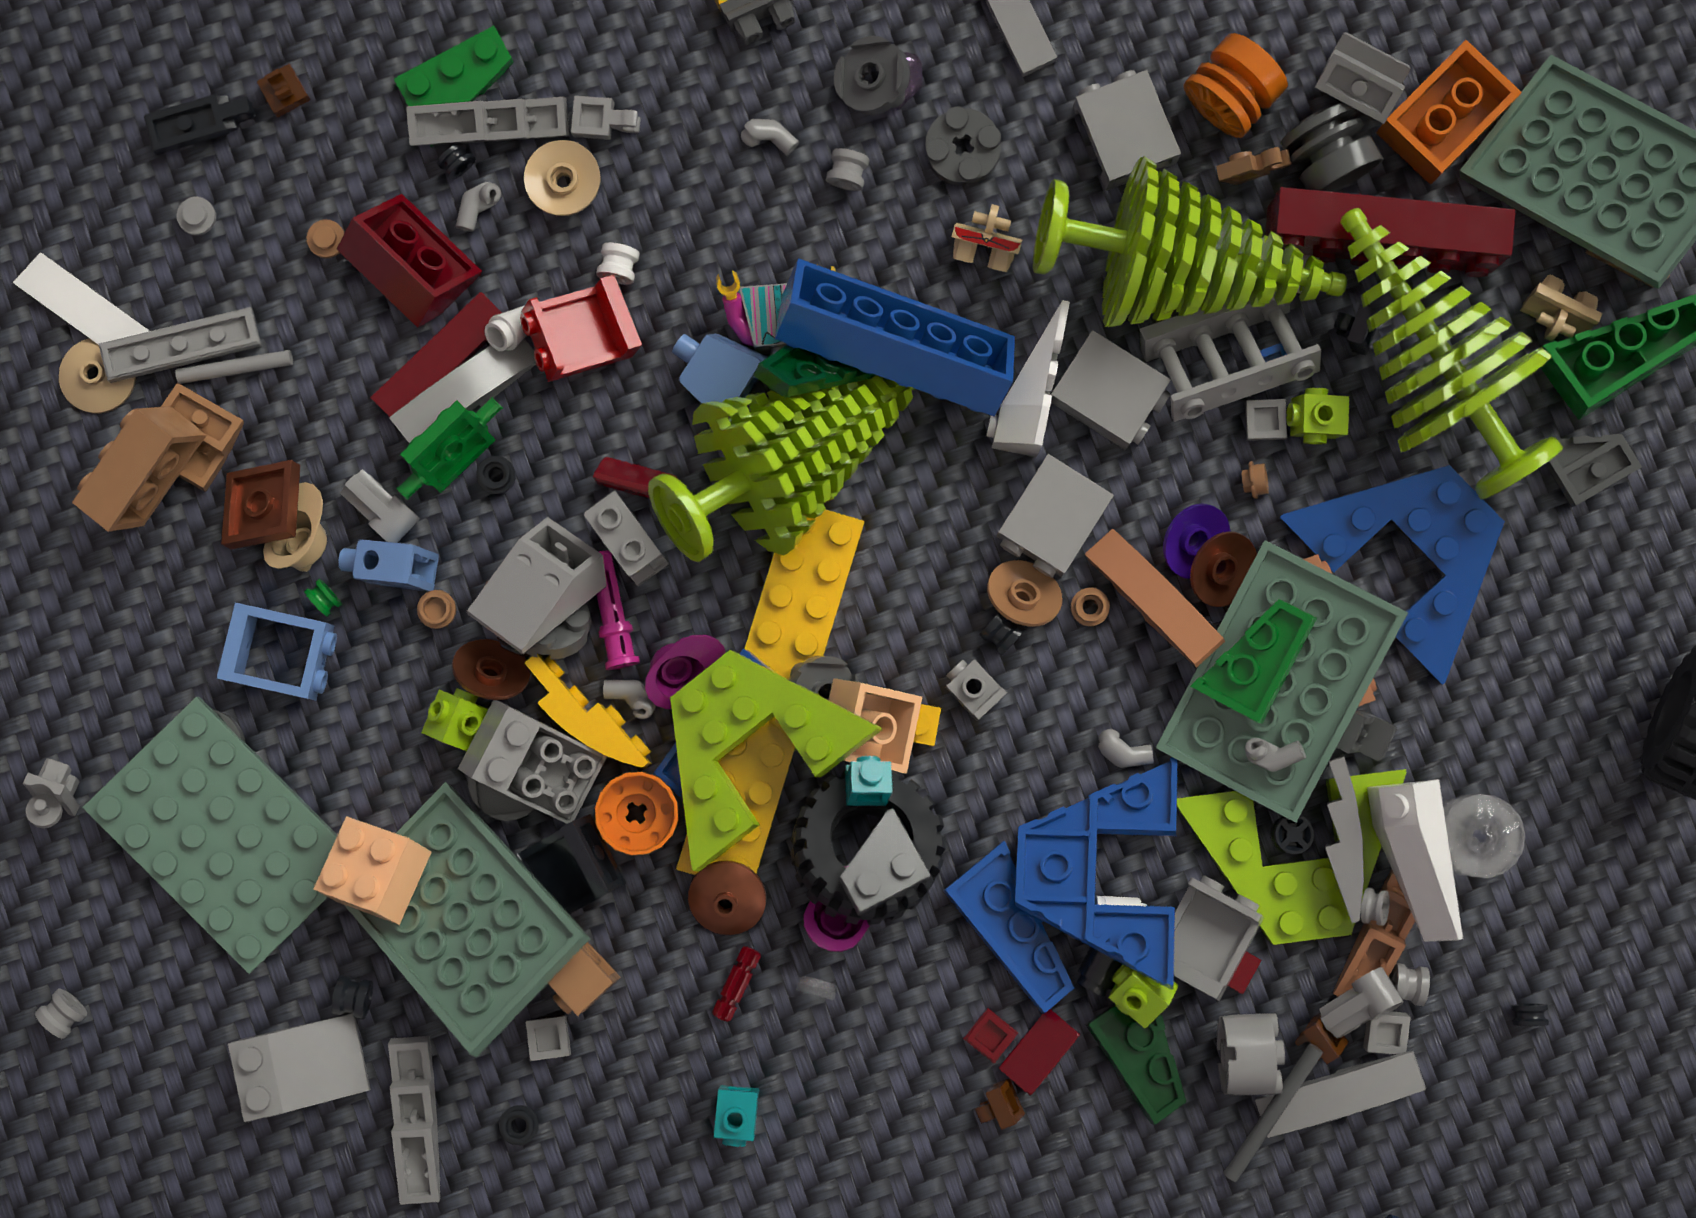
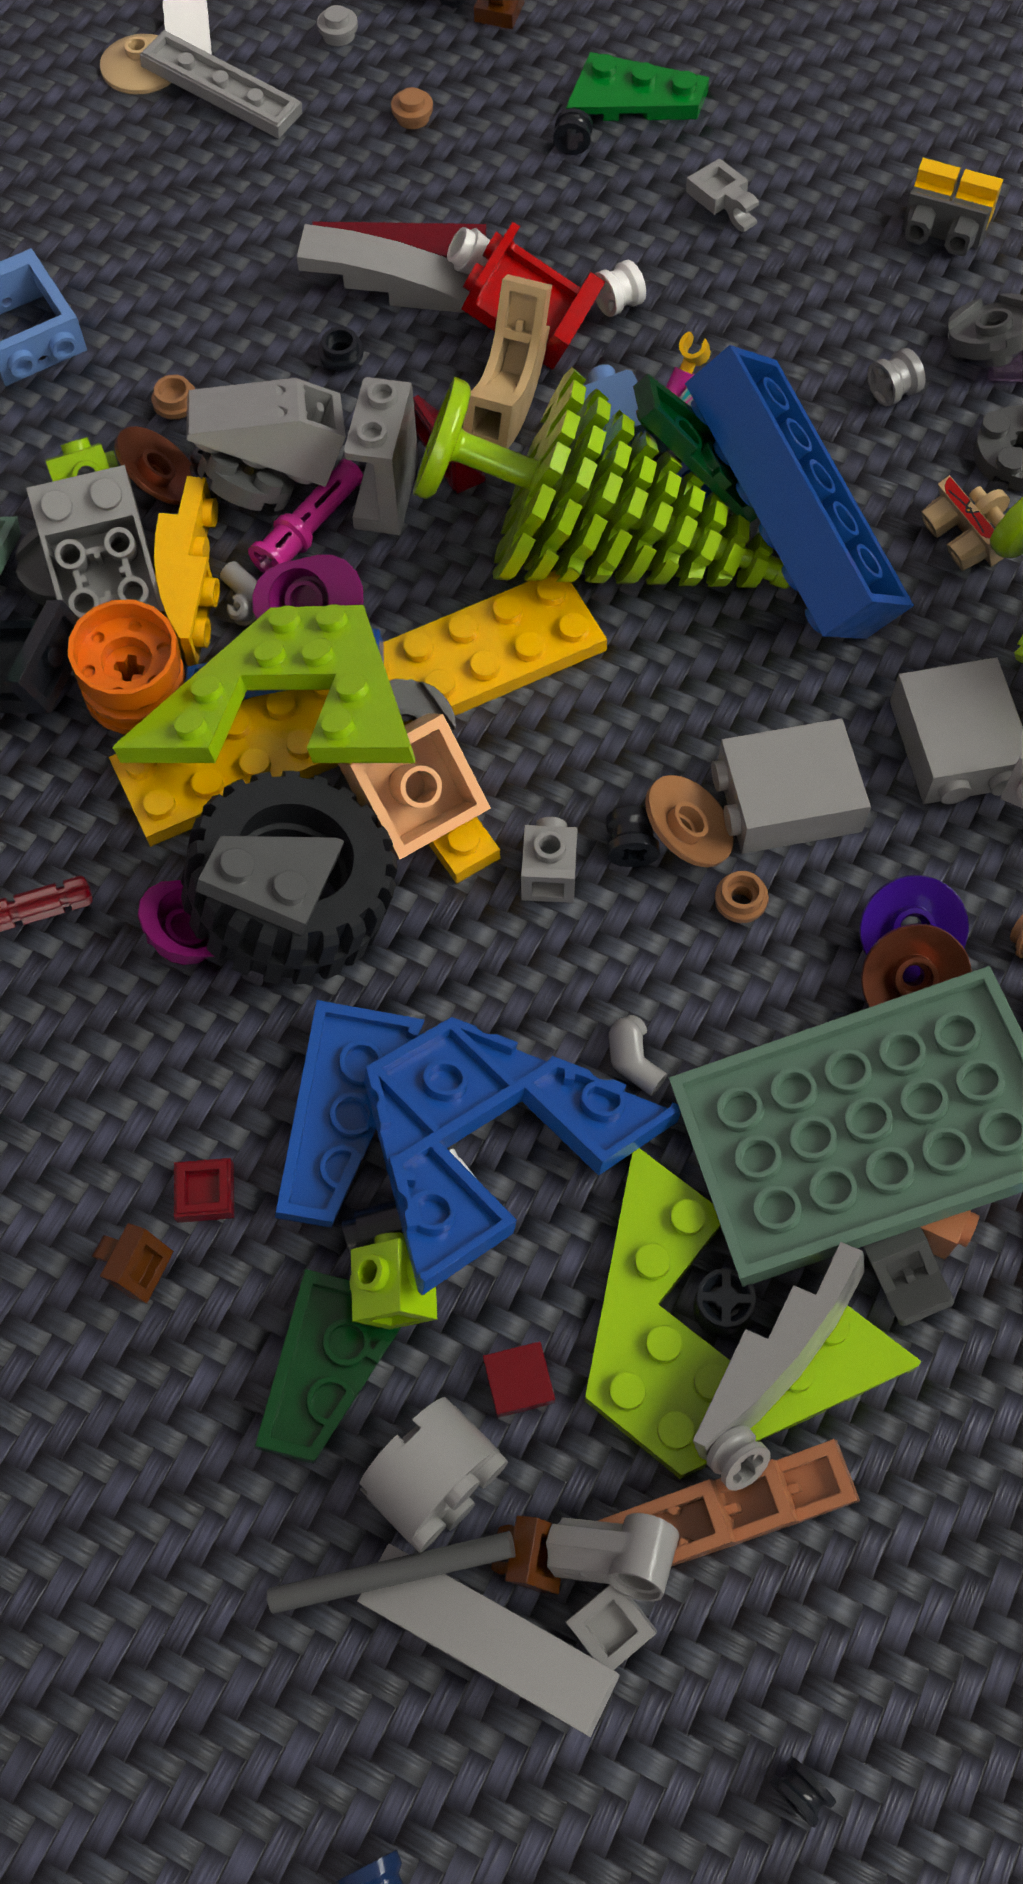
camera: 45 degrees right, 20 degrees down
(138, 467) = (81, 103): medium nougat brick -> none
(220, 429) = (151, 146): medium nougat slope -> none
(234, 366) = (241, 130): light grey bar -> none
(261, 504) = (138, 211): copper plate -> none
(310, 536) = (139, 260): tan piece -> none
(323, 597) = (101, 314): green bush -> none
(386, 513) = (222, 301): light grey piece -> none
(391, 564) = (179, 316): medium blue torso -> none
(407, 259) = (455, 158): dark red slope -> none
(448, 446) = (324, 282): green plate -> none
(475, 201) = (555, 170): light grey arm -> none
(487, 121) = (629, 125): light grey slope -> none
(558, 160) = (643, 201): tan dish -> none
(626, 400) = (515, 362): none -> tan arch
(730, 882) = (134, 831): copper dish -> none
(769, 130) = (858, 306): light grey arm -> none
(816, 988) = (99, 974): clear tile -> none
(868, 782) = (357, 785): teal brick -> none
(1027, 405) = (863, 671): white wedge -> none
(1039, 1051) = (230, 1255): dark red slope -> none
(1155, 598) = (816, 938): nougat slope -> none
(1212, 935) = (524, 1314): light grey panel -> none
(1258, 664) = (859, 1075): green wing -> none
(1272, 757) = (781, 1181): light grey arm -> none
(1411, 983) = (693, 1598): light grey wheel -> none
(1416, 843) = (851, 1439): white wedge -> none
(1495, 820) = (941, 1539): clear wheel -> none

